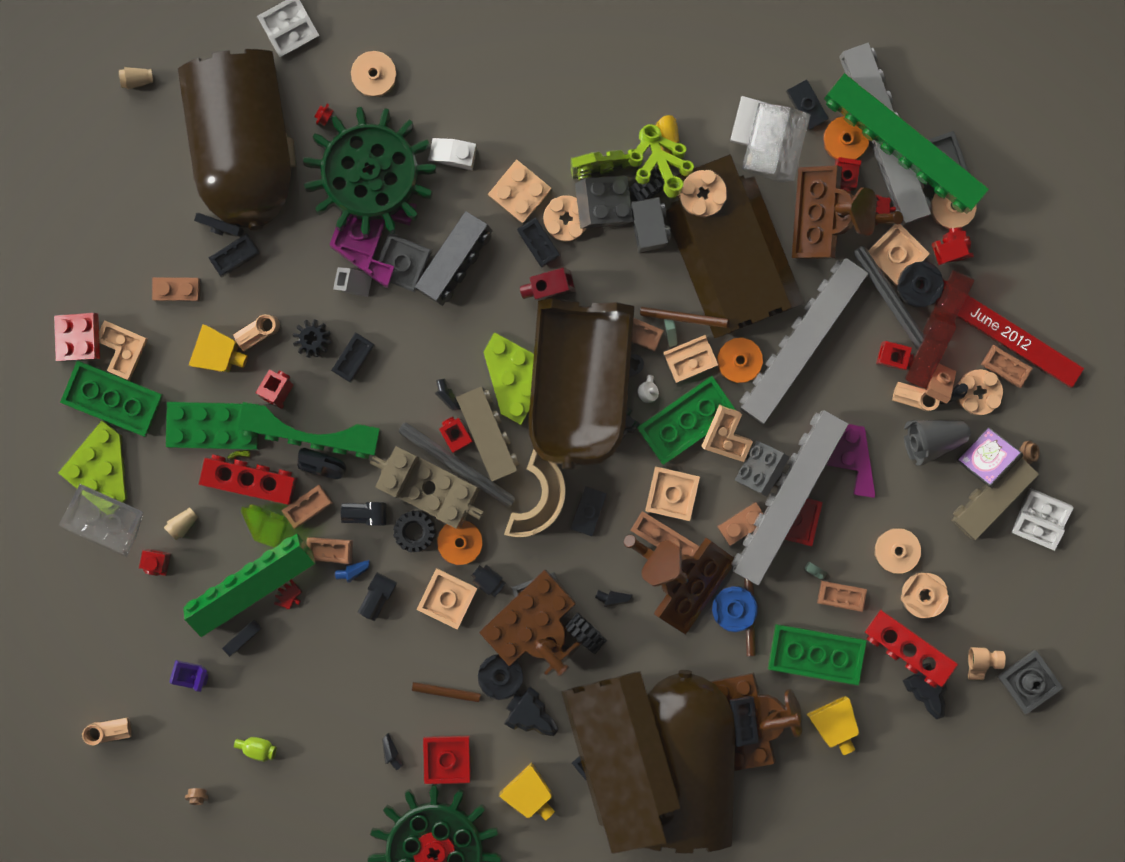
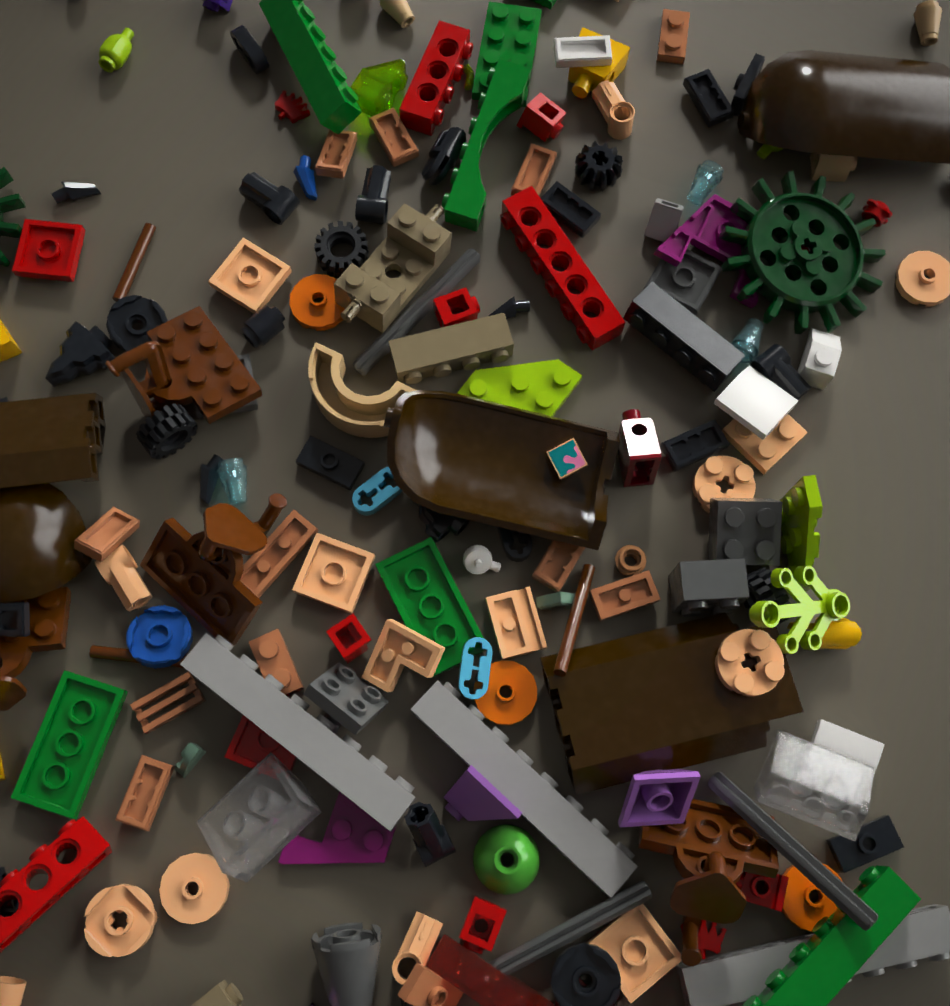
camera: 95 degrees right, 15 degrees down
(214, 362) = (582, 51): none -> white tile
(314, 252) = (705, 181): none -> clear light blue cone
(322, 389) = (534, 169): none -> nougat tile
(357, 389) = (528, 207): none -> red brick
(448, 209) = (749, 339): none -> clear light blue cone
(468, 186) = (777, 367): none -> black piece
(502, 200) = (755, 402): none -> white slope
(564, 336) = (567, 458): none -> tile
(603, 478) = (373, 486): none -> medium azure beam
(612, 579) = (234, 479): none -> clear light blue cone
(632, 274) = (634, 552): none -> medium nougat plate
(660, 283) = (624, 595): none -> nougat plate
(668, 661) = (106, 534): none -> nougat tile
(692, 646) = (121, 573): none -> light nougat piece
(720, 473) = (349, 638): none -> red brick
(728, 377) = (483, 668): none -> medium azure beam
(791, 609) = (160, 692): none -> nougat tile
(801, 248) = (659, 797): none -> medium lavender slope
(818, 368) = (478, 799): none -> medium lavender slope
(822, 158) = (794, 852): none -> dark grey axle
(839, 345) = (488, 854): none -> bright green piece
(844, 398) = (429, 836): none -> black piece
(849, 515) = (257, 818): none -> clear slope

